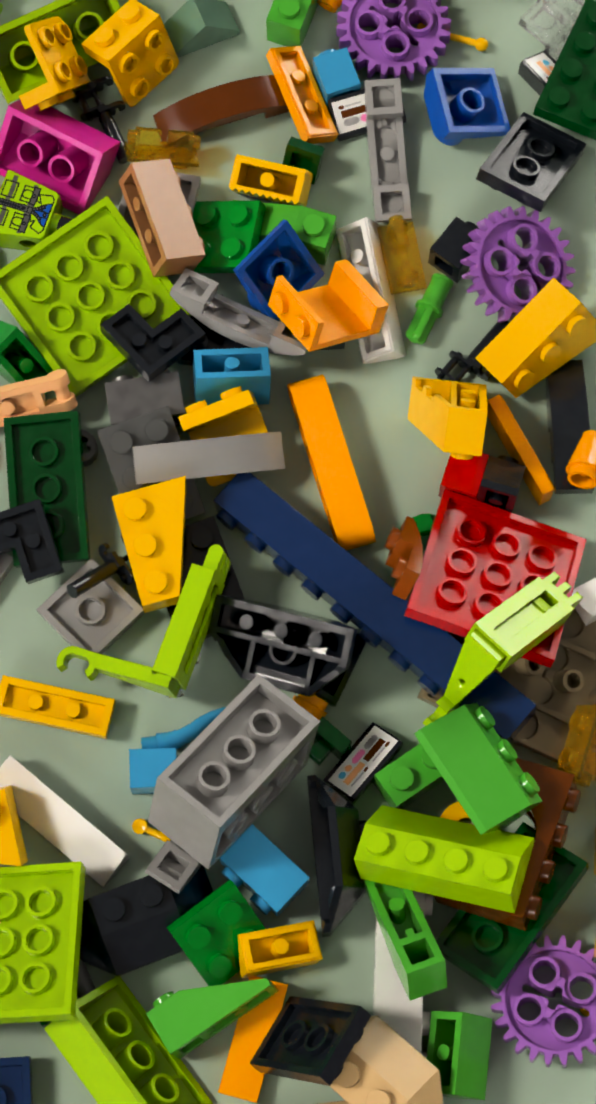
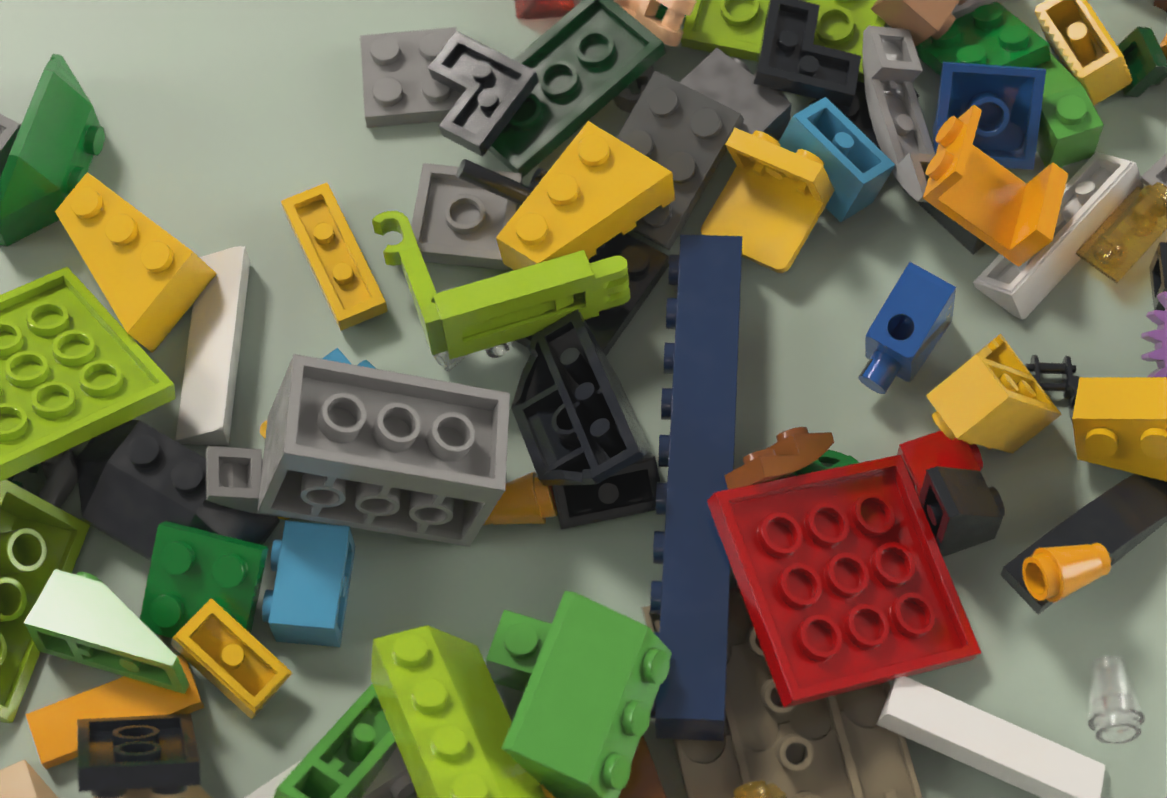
camera: 55 degrees right, 10 degrees down
(208, 457) = (726, 196): light grey slope -> none
(328, 741) = (508, 545): dark green tile -> none
(331, 462) = (827, 327): light orange beam -> none
(335, 842) = (344, 669): black wedge -> none
(363, 760) = (489, 595): slope -> none
(370, 409) = (907, 328): none -> blue torso
(429, 308) = (1095, 300): bright green axle -> none
(506, 636) = (782, 618): lime hinge -> none
(520, 449) = (1020, 504): light orange tile -> none

